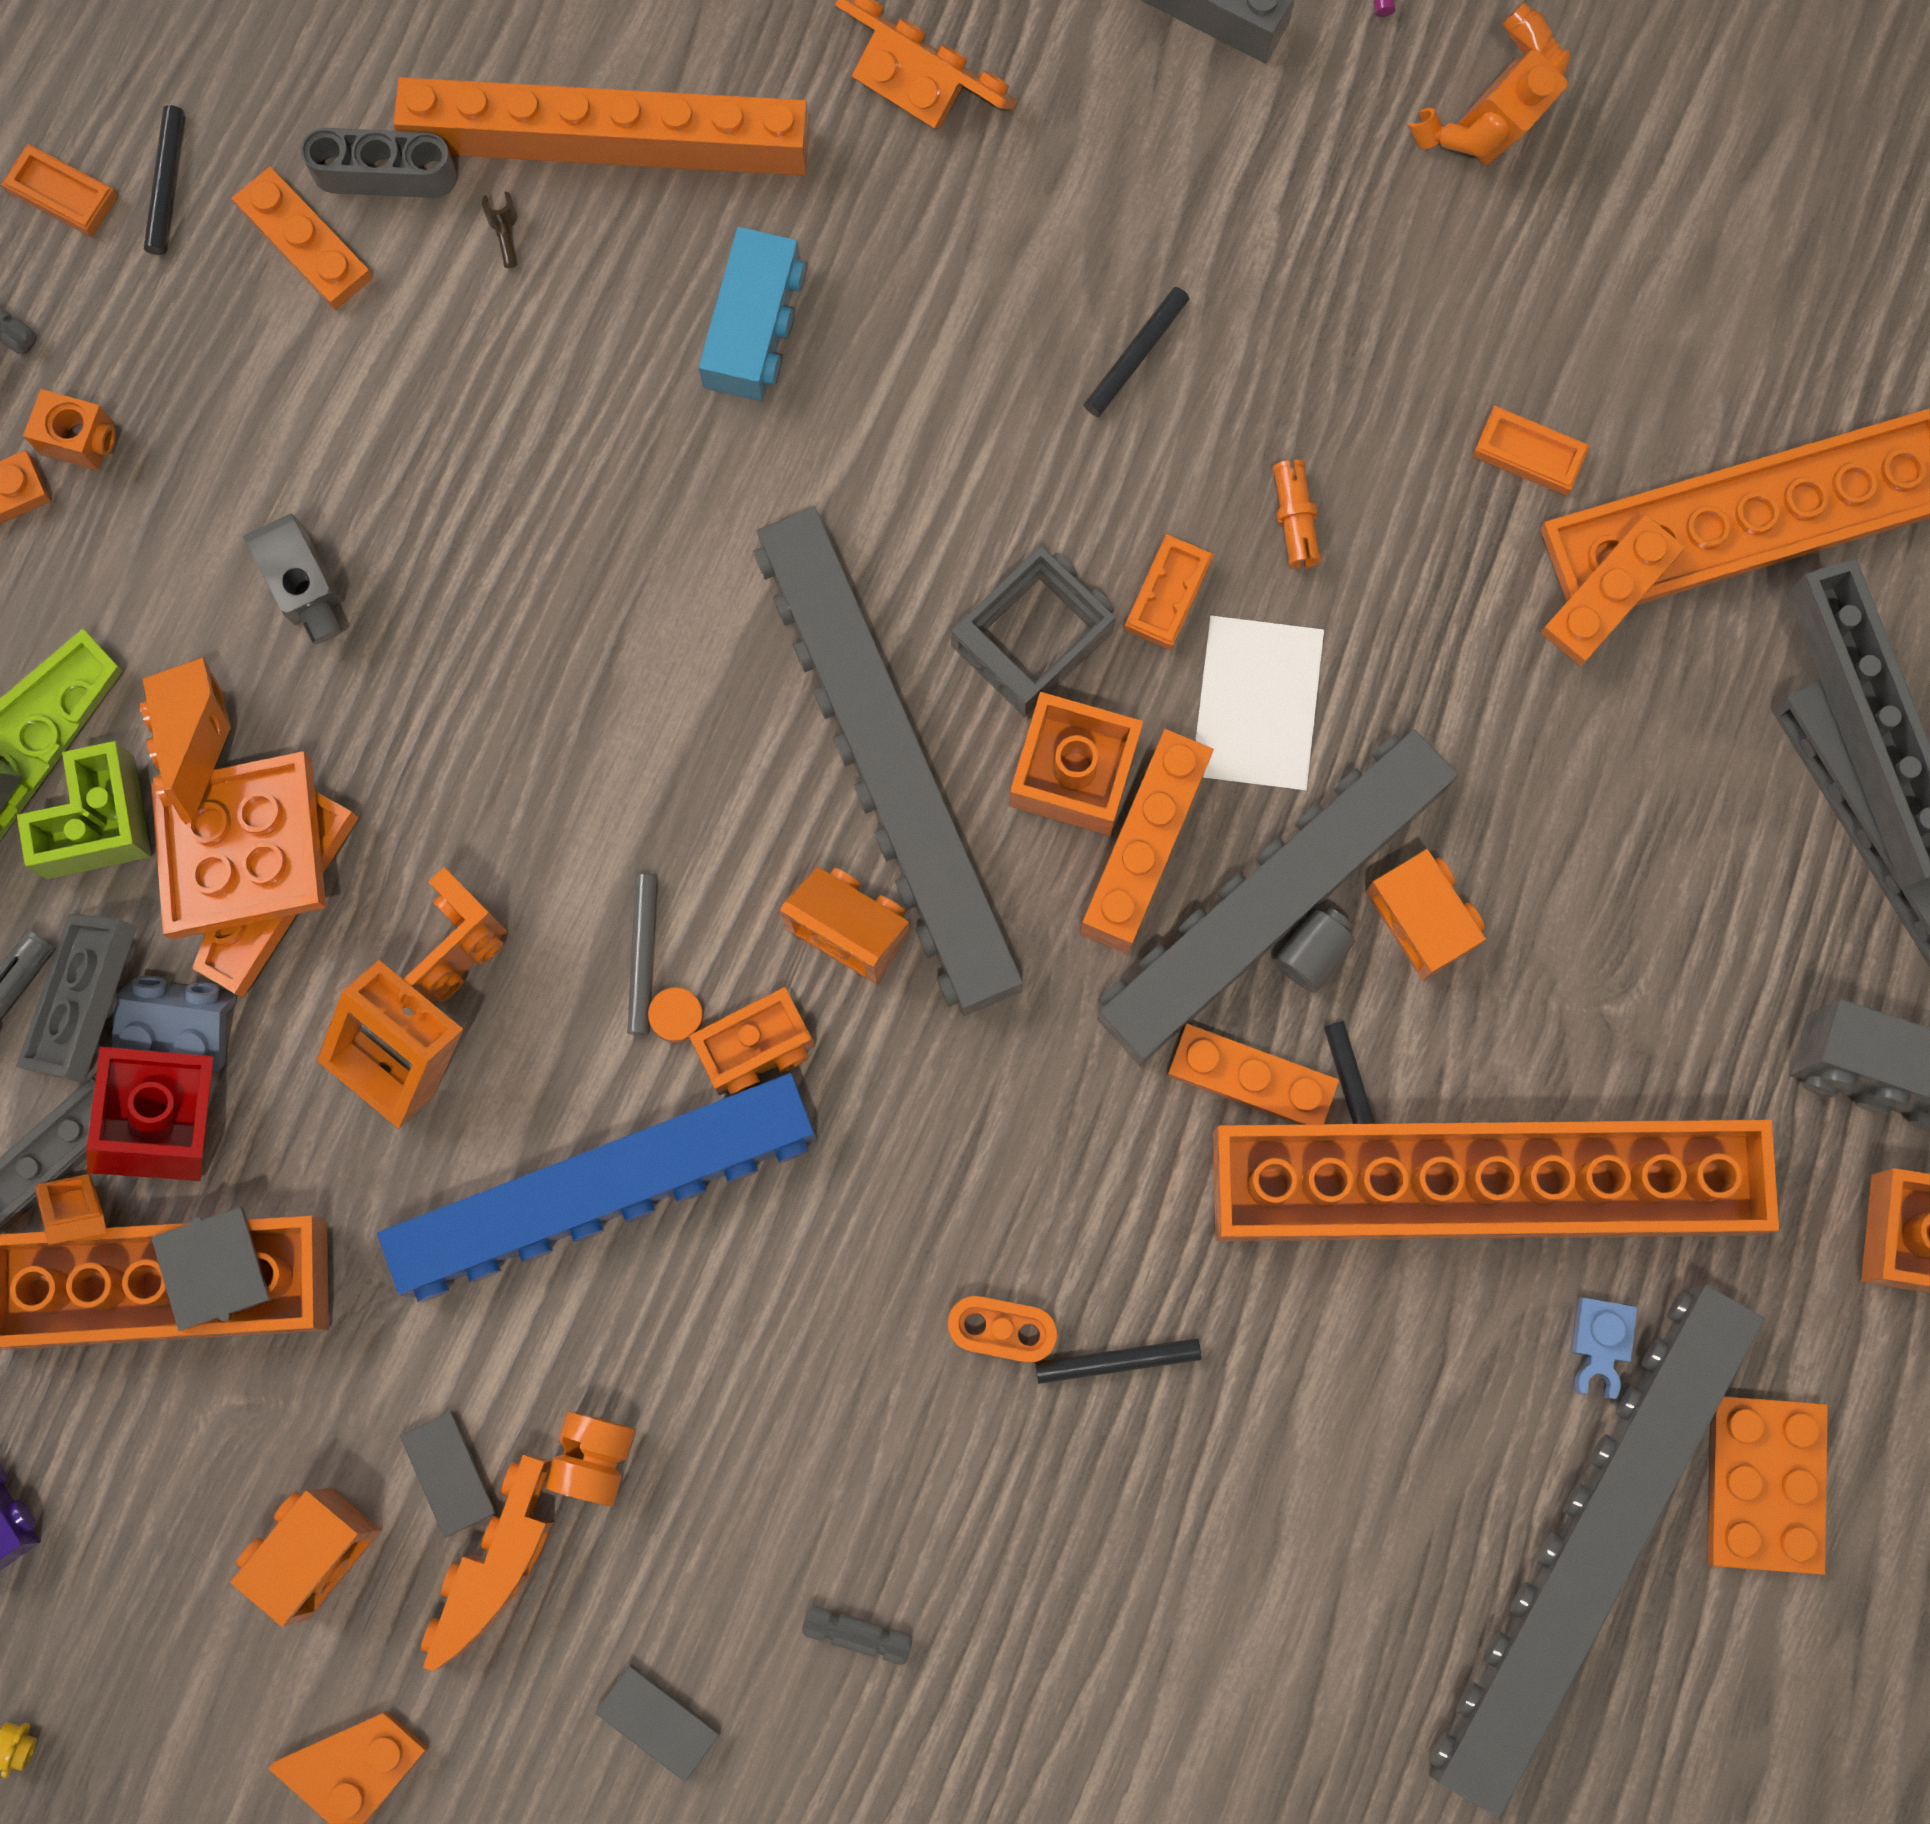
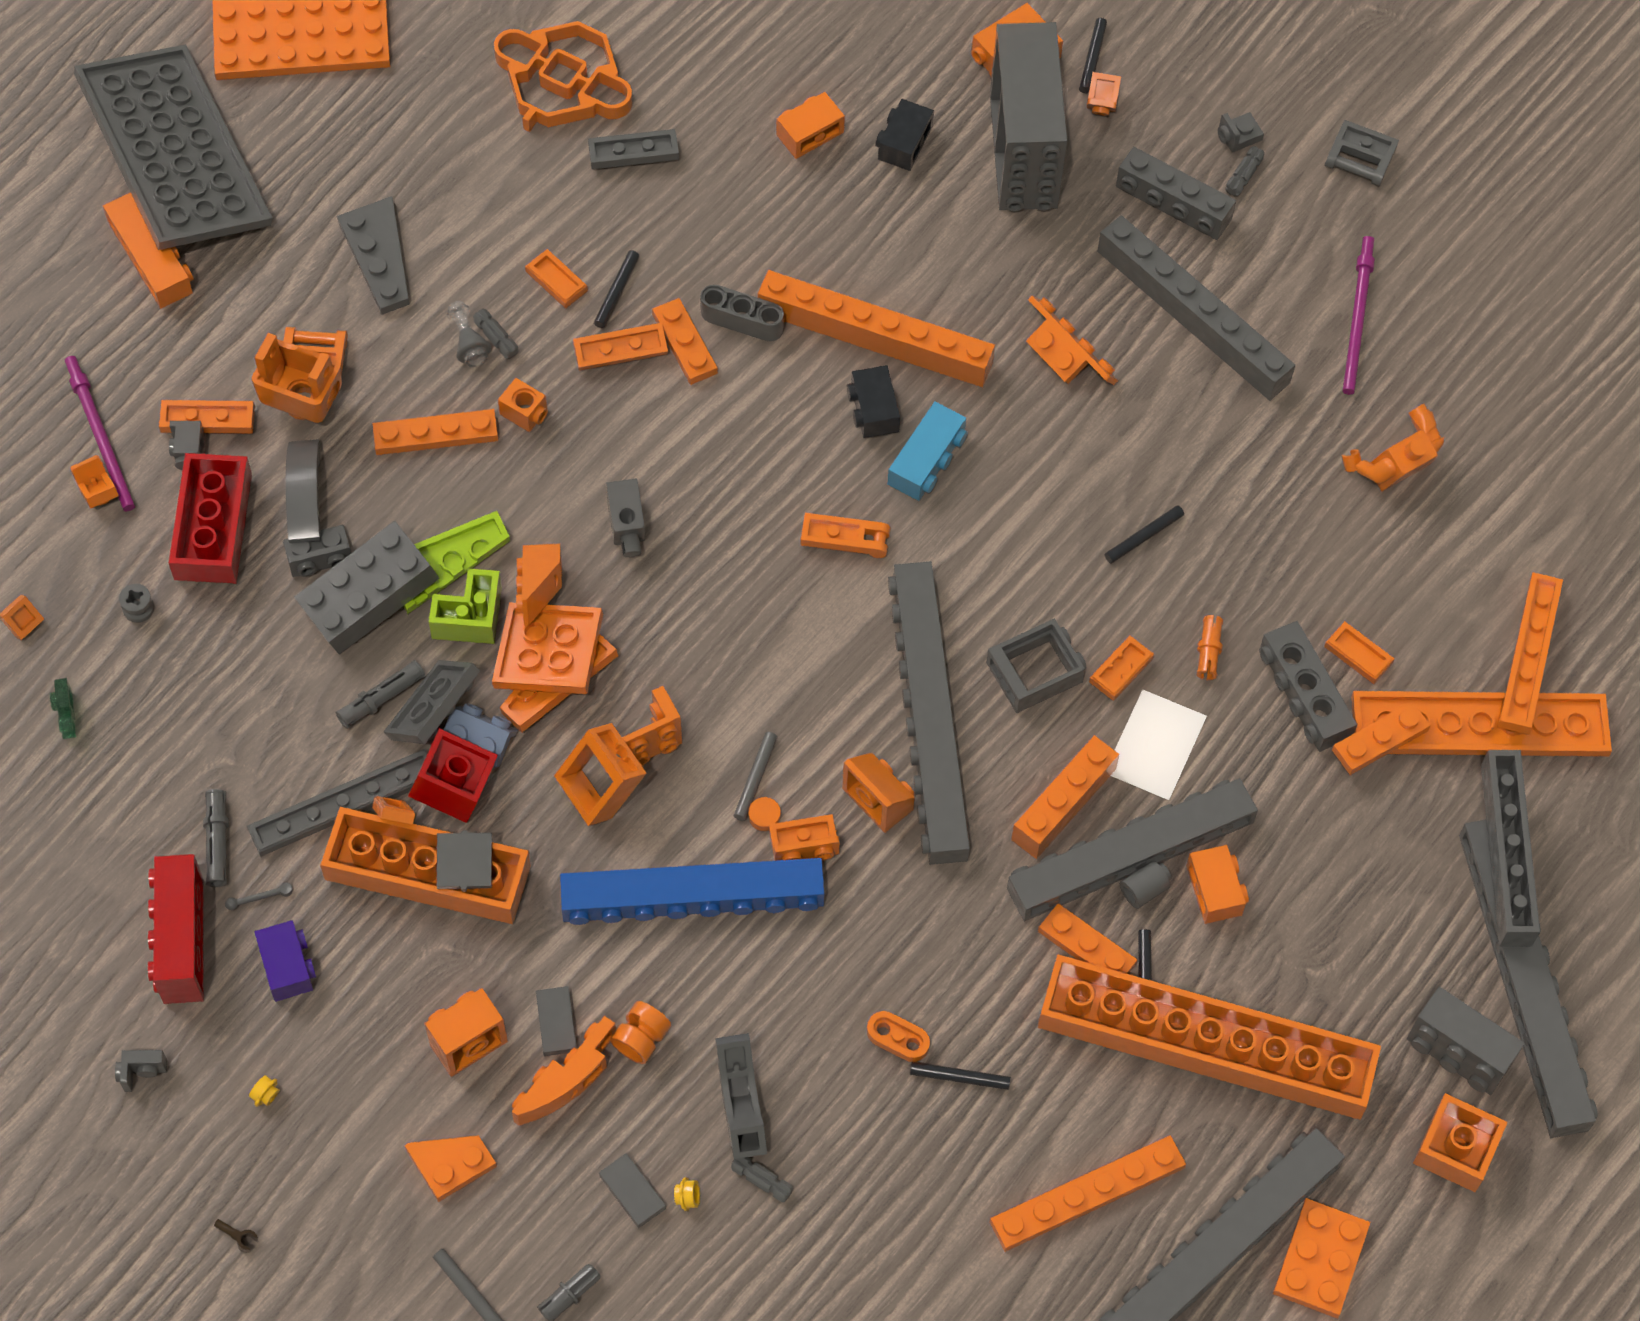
camera: 15 degrees right, 15 degrees down
(198, 280) = (620, 346): none -> orange plate
(502, 221) = (800, 363): dark brown hand -> none
(640, 254) = (874, 402): none -> black brick
(661, 497) = (845, 534): none -> orange plate
(748, 1703) = (687, 1194): none -> yellow plate
(786, 1525) = (740, 1096): none -> dark grey arch
(1075, 763) = (1037, 742): orange brick -> none
(1375, 1494) = (1087, 1193): none -> orange plate
(1466, 506) = (1293, 643): none -> dark grey brick
(1604, 1335) = (1249, 1148): medium blue plate -> none
(1803, 376) = (1530, 653): none -> orange plate

